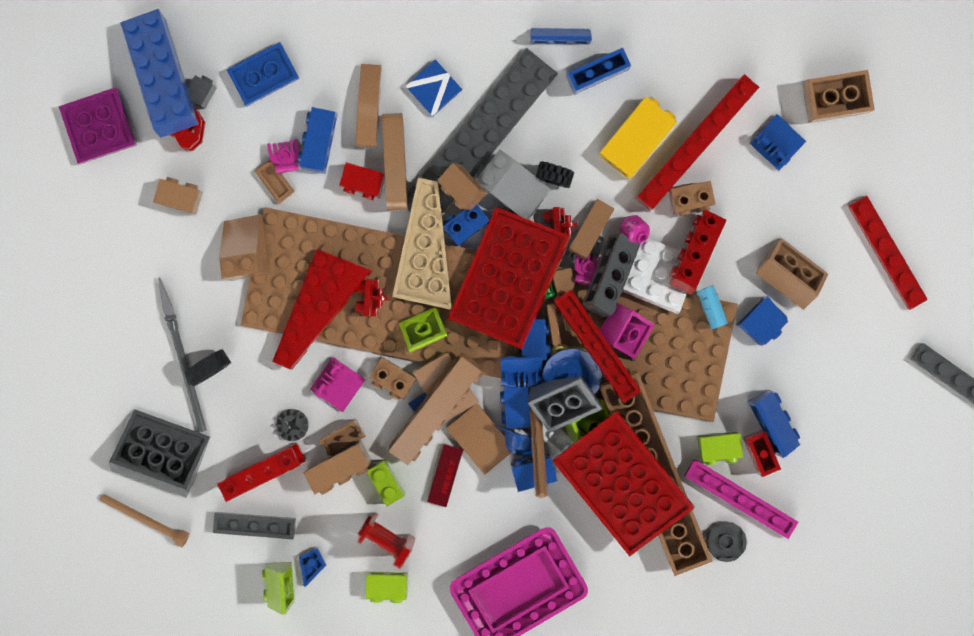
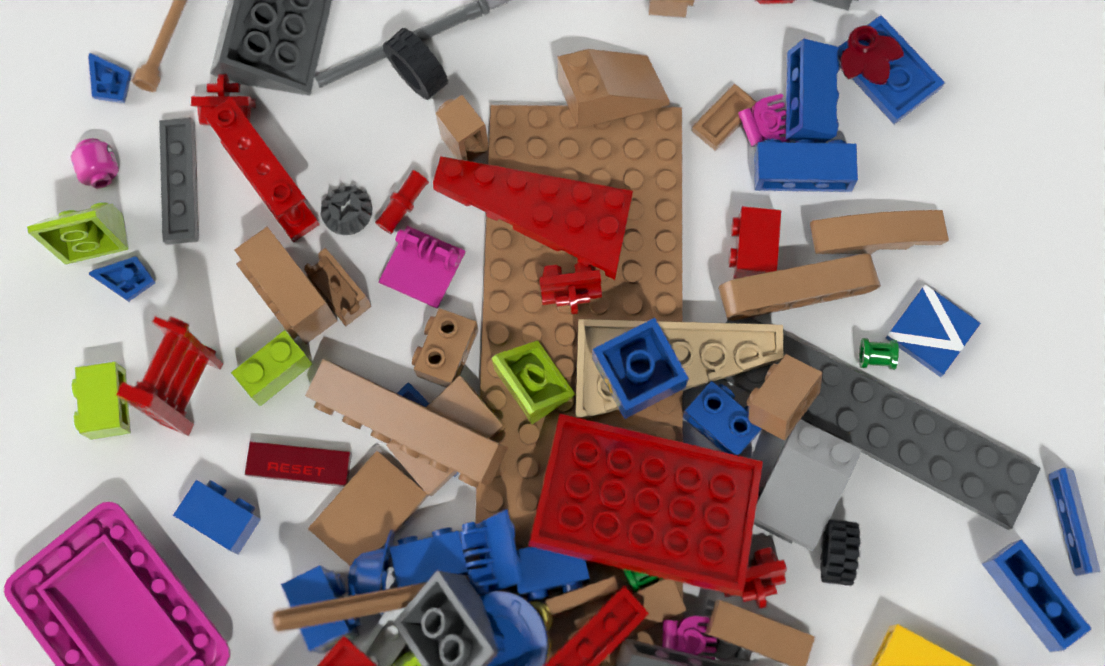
camera: 80 degrees right, 15 degrees down
(177, 563) = (108, 80): none -> blue piece
(207, 501) = (223, 89): none -> red hips
(233, 576) = (94, 163): none -> dark pink head
(257, 84) = (870, 59): none -> dark red plate
(257, 346) = (462, 129): none -> medium nougat brick
(271, 125) = (812, 92): none -> blue brick
(294, 390) = (402, 202): none -> red pin
(431, 267) = (639, 368): none -> blue brick
(443, 124) = (878, 353): none -> green bush
(467, 525) = (216, 516): none -> blue brick

